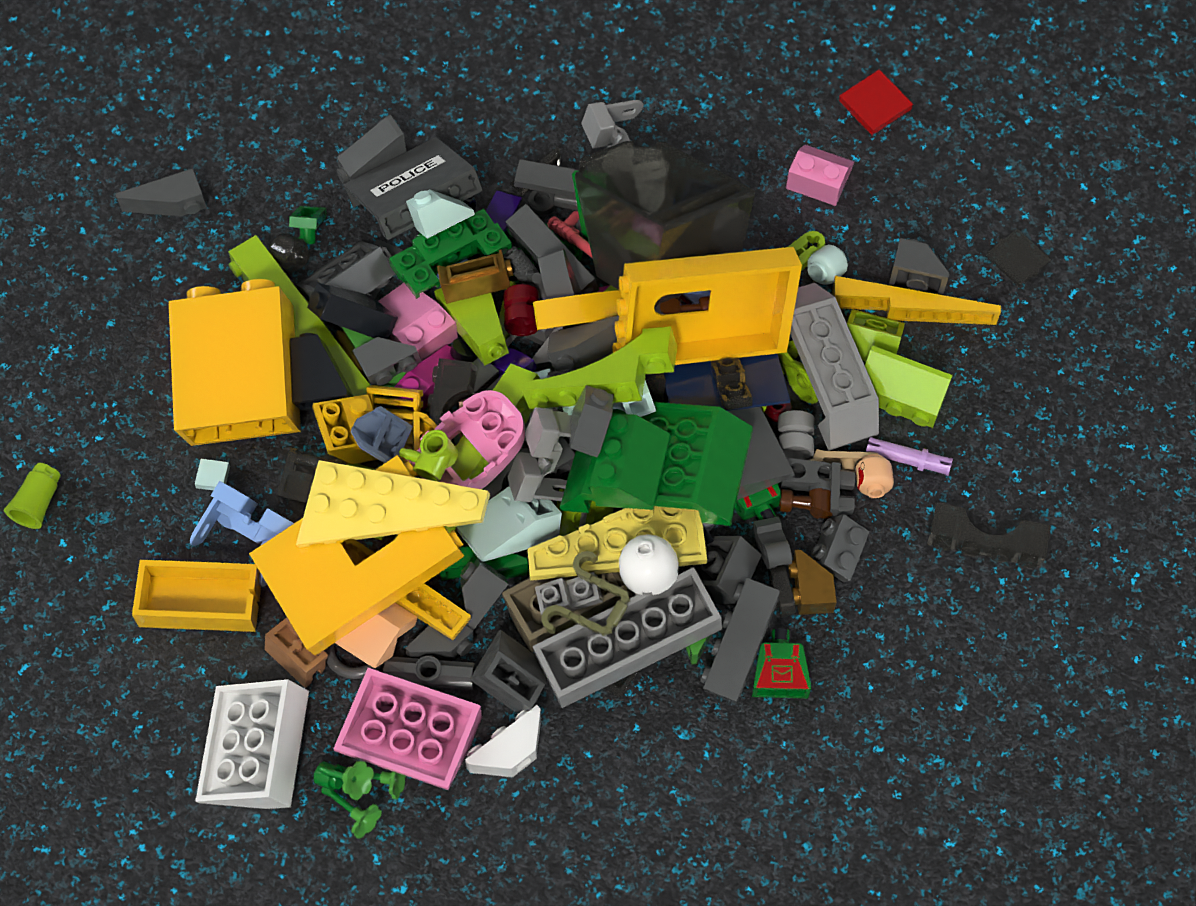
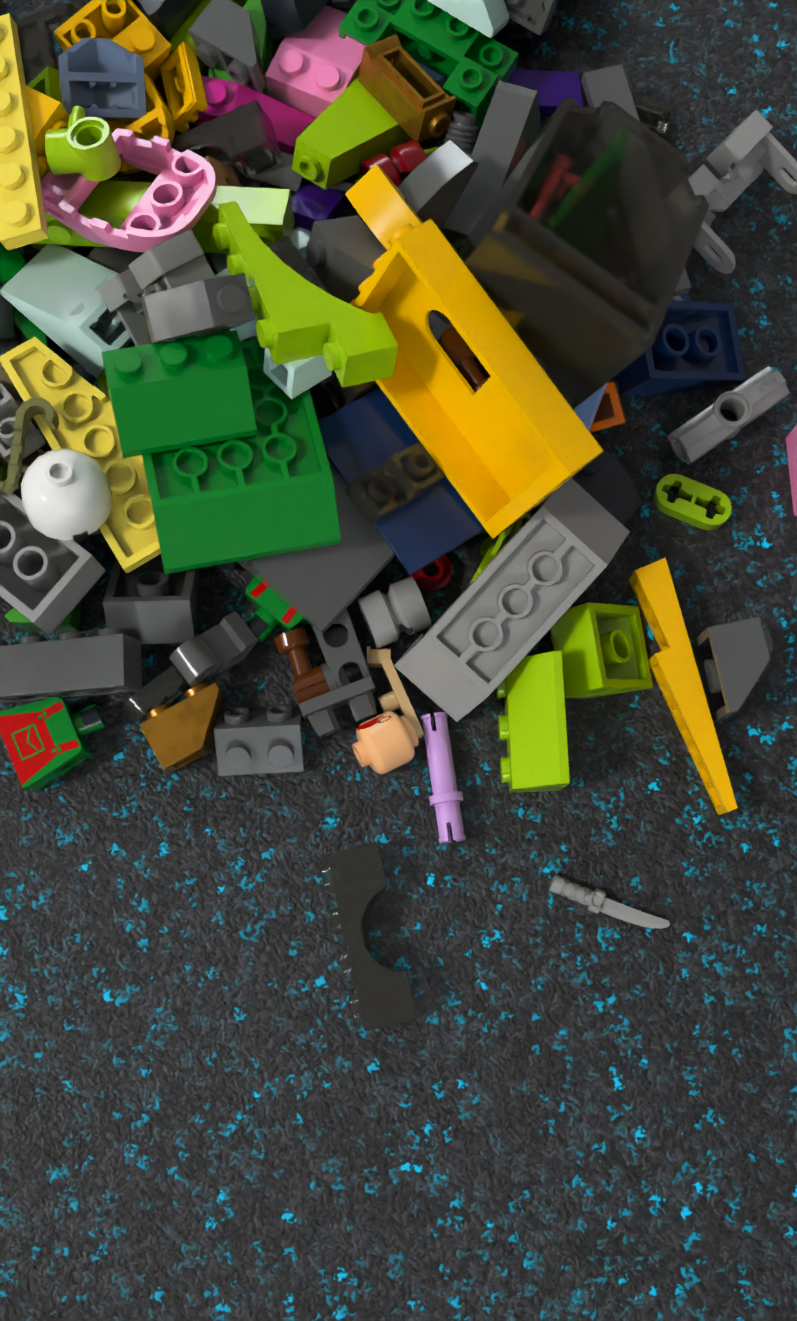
camera: 65 degrees right, 15 degrees up
(763, 220) = (746, 402): none -> light grey piece
(826, 264) = (685, 541): light aqua head -> none
(1020, 408) = (598, 903): none -> light grey piece

